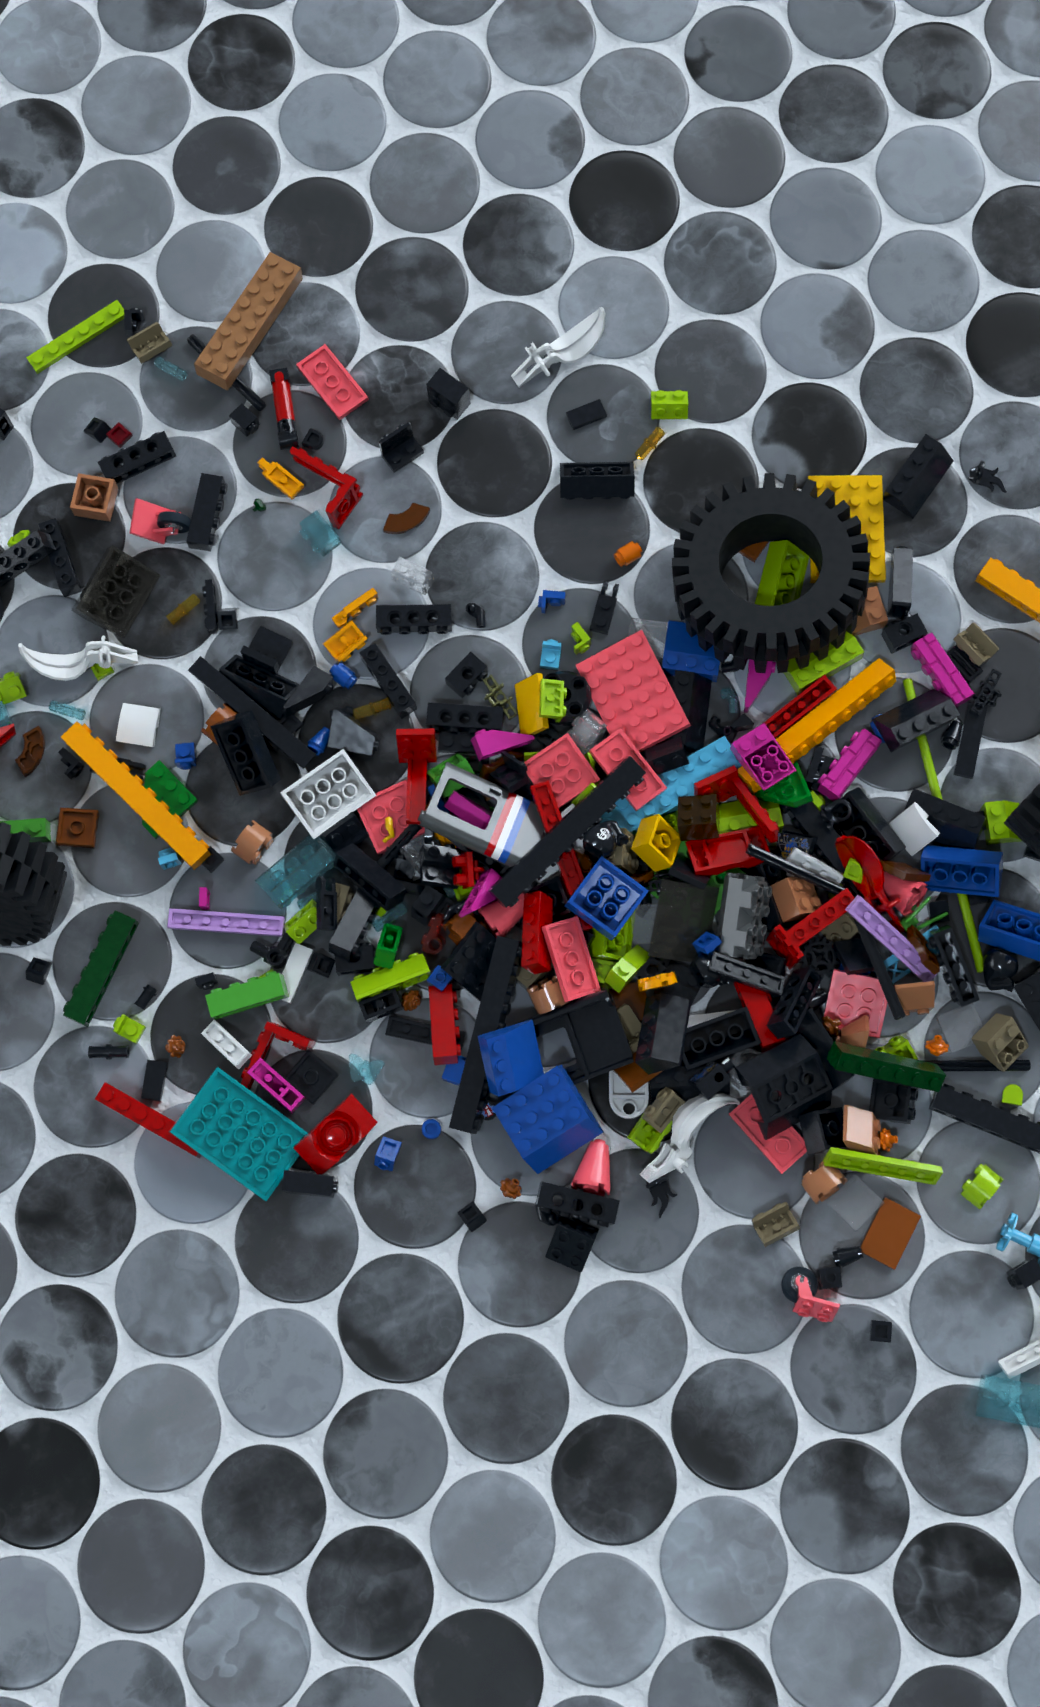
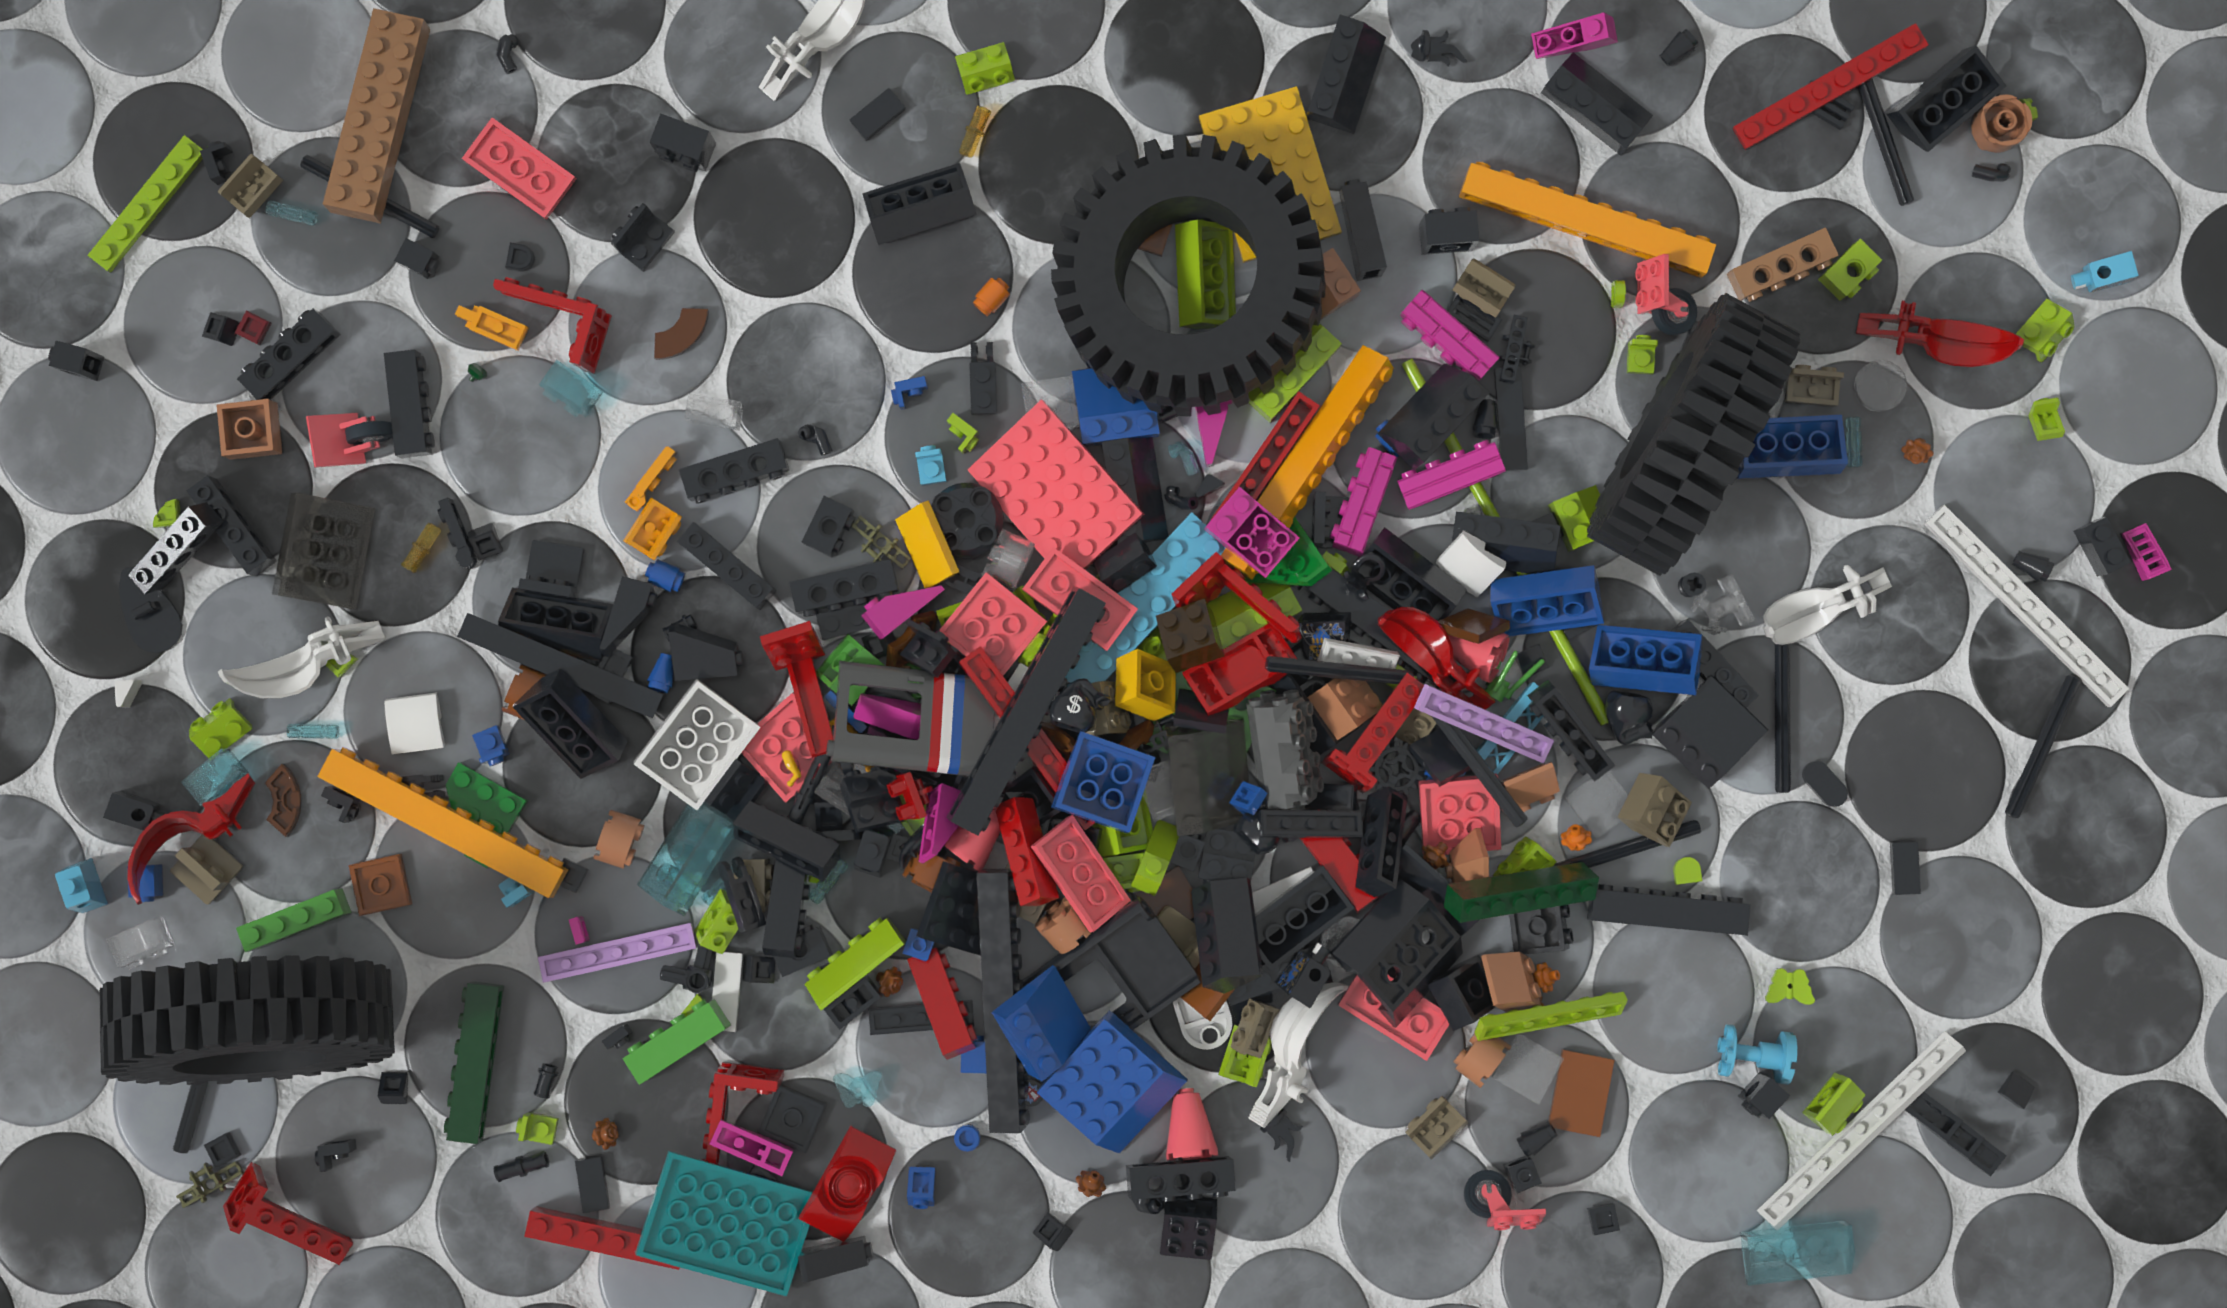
camera: 25 degrees left, 10 degrees up
(226, 1044) = (670, 1112): white tile -> none
(284, 408) = (451, 195): piece -> none
(346, 306) = (504, 50): none -> black arm
(372, 708) = (717, 609): clear yellow axle -> none
(388, 946) = (838, 923): green brick -> none
(435, 924) = (893, 889): clear red plate -> none
(552, 699) = (952, 533): lime bracket -> none
(657, 981) = (1197, 872): light orange plate -> none
(853, 871) = (1410, 647): lime tile -> none
(895, 640) = (1378, 312): black brick -> none
(918, 764) = (1451, 476): none -> dark pink brick
(919, 942) = (1517, 714): reddish brown tile -> none
(961, 598) = (1449, 231): none -> black brick
(982, 1186) = (1681, 997): lime cylinder -> none

